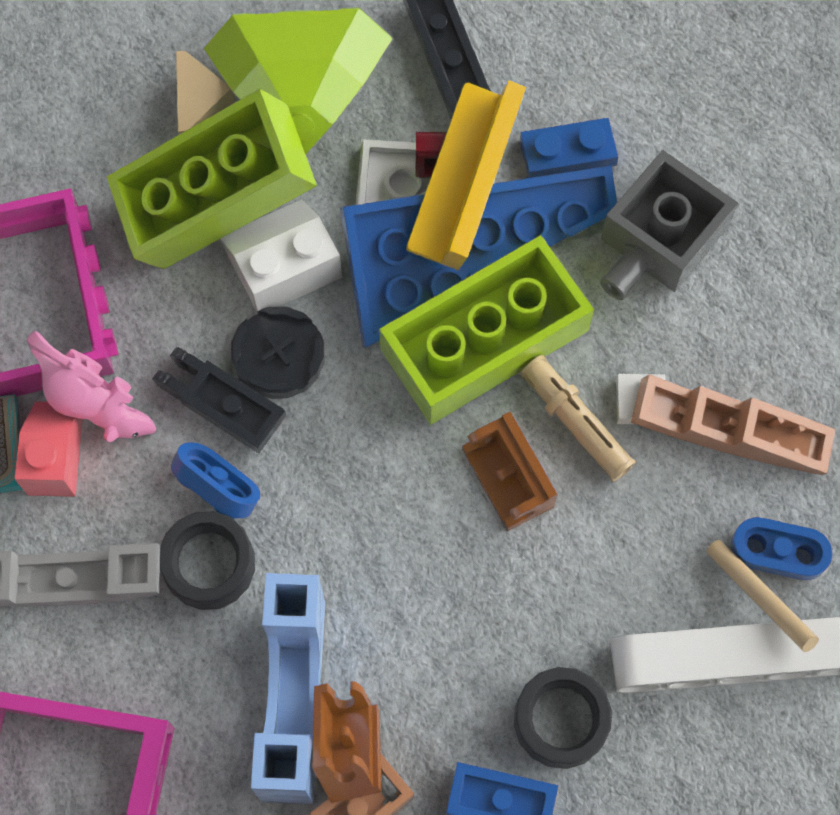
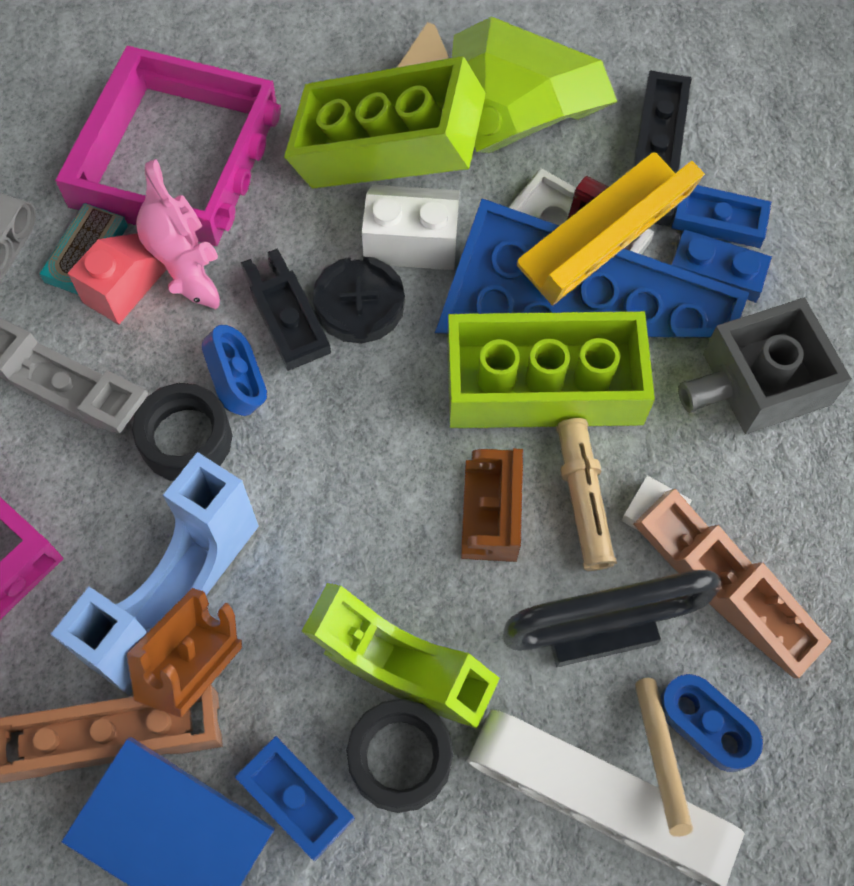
camera: 30 degrees right, 5 degrees down
(521, 644) = (398, 662): none -> lime arch
(553, 100) = (724, 216): none -> blue plate
(661, 513) = (611, 618): none -> black bar

